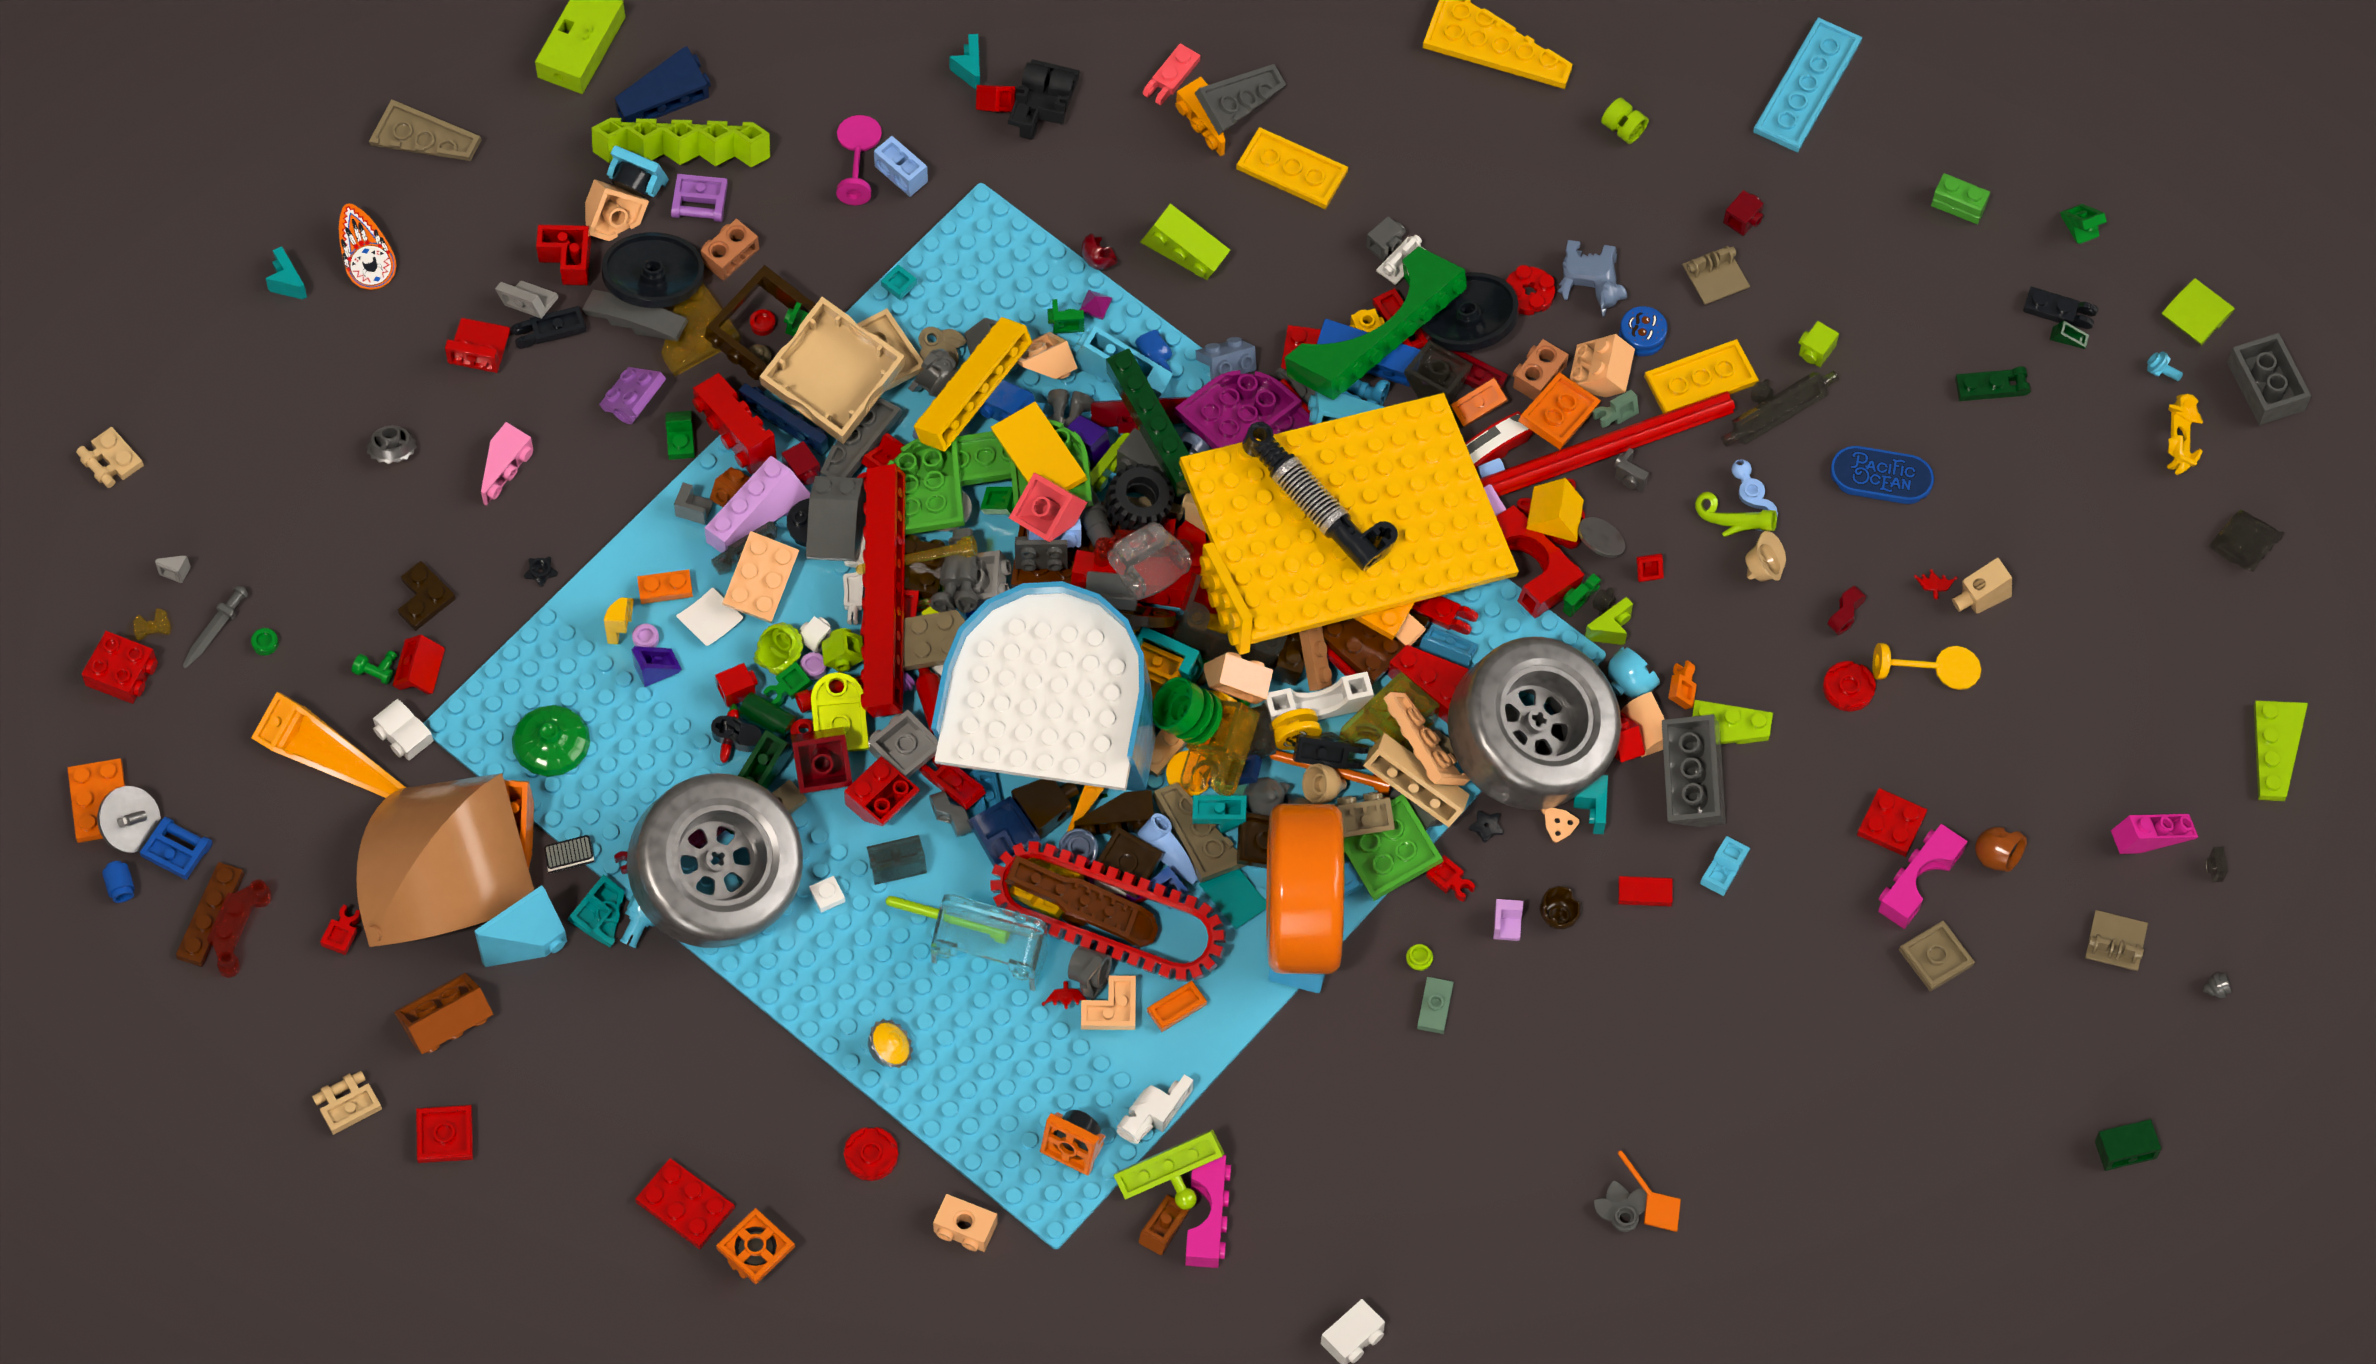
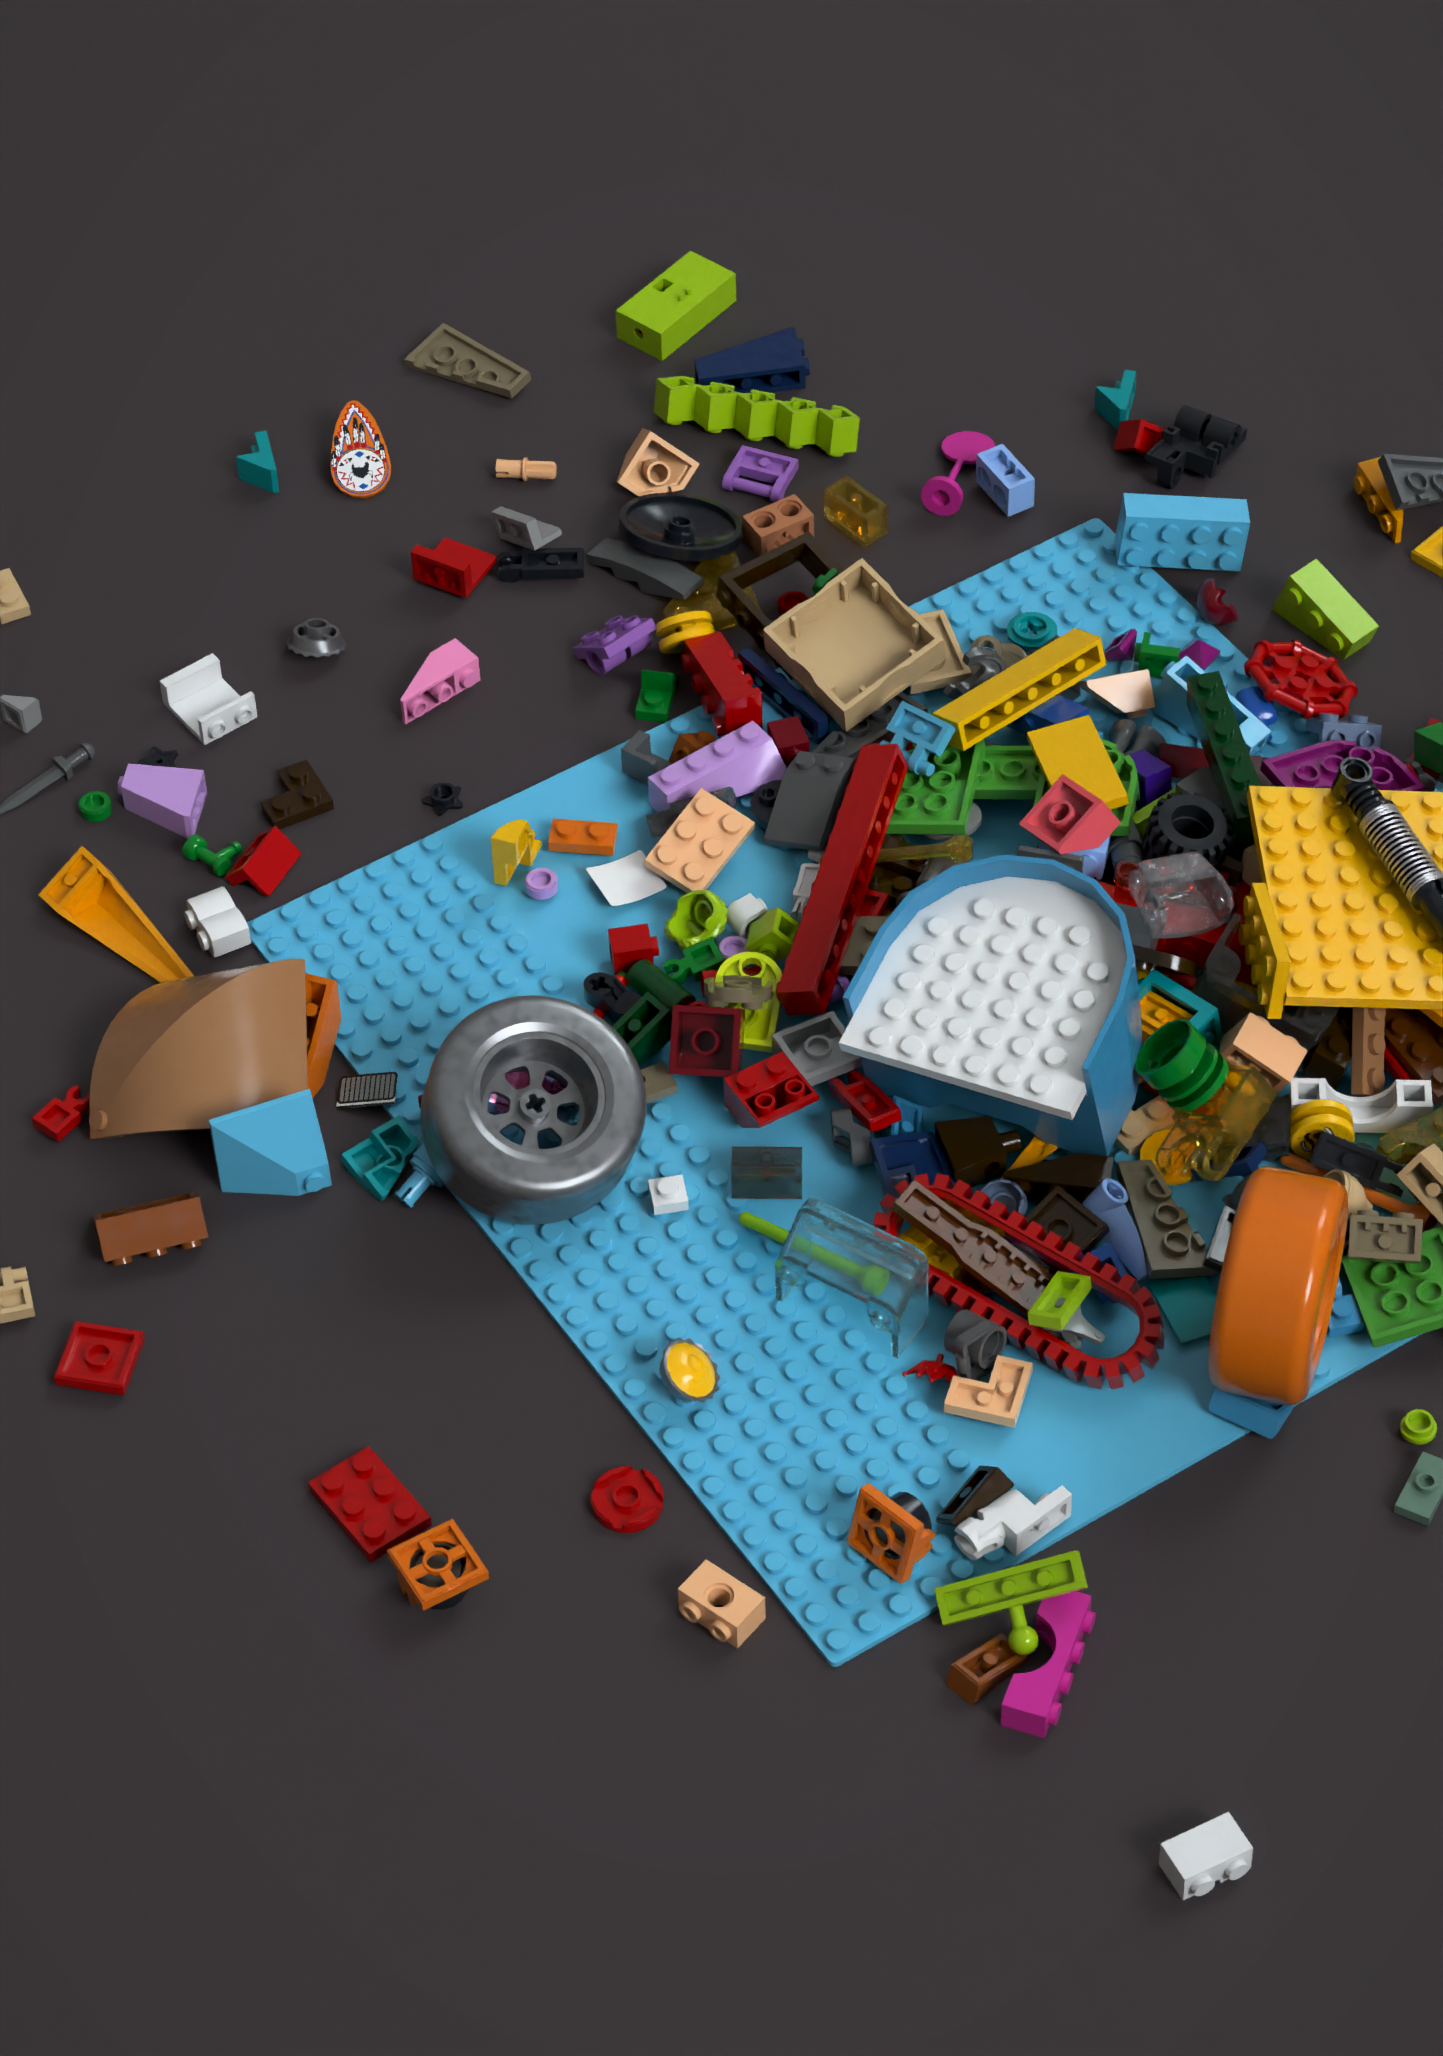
camera: 20 degrees right, 15 degrees down
(307, 594) = (160, 758): none -> black plate
(319, 622) = (165, 795): none -> lavender slope
(321, 522) = (206, 700): none -> white panel
(504, 233) = (525, 469): none -> light nougat axle
(550, 740) = (389, 967): green hat -> none
(569, 247) = (589, 489): red brick -> none
(635, 173) = (694, 431): piece -> none
(654, 664) = (540, 909): dark purple slope -> none
(689, 374) = (681, 628): none -> yellow head
(789, 223) = (856, 511): none -> clear yellow brick
(834, 714) = (737, 990): none -> dark tan plate
(898, 282) = (966, 588): teal plate -> none
(908, 442) = (923, 730): none -> medium azure plate
(963, 302) = (1038, 623): none -> teal gear
(998, 501) = (1008, 826): green bracket -> none
(1034, 311) = (1122, 647): none -> magenta slope
(1056, 193) = (1182, 532): none -> medium azure brick
(1122, 1095) = (978, 1491): none -> dark brown slope
(1146, 929) = (1060, 1309): none -> lime piece
(1167, 323) = (1300, 678): none -> red plate
(1172, 73) = (1362, 448): coral hinge -> none
(1176, 1006) = (1077, 1413): orange tile -> none
(1219, 809) = (1200, 1197): teal slope -> none

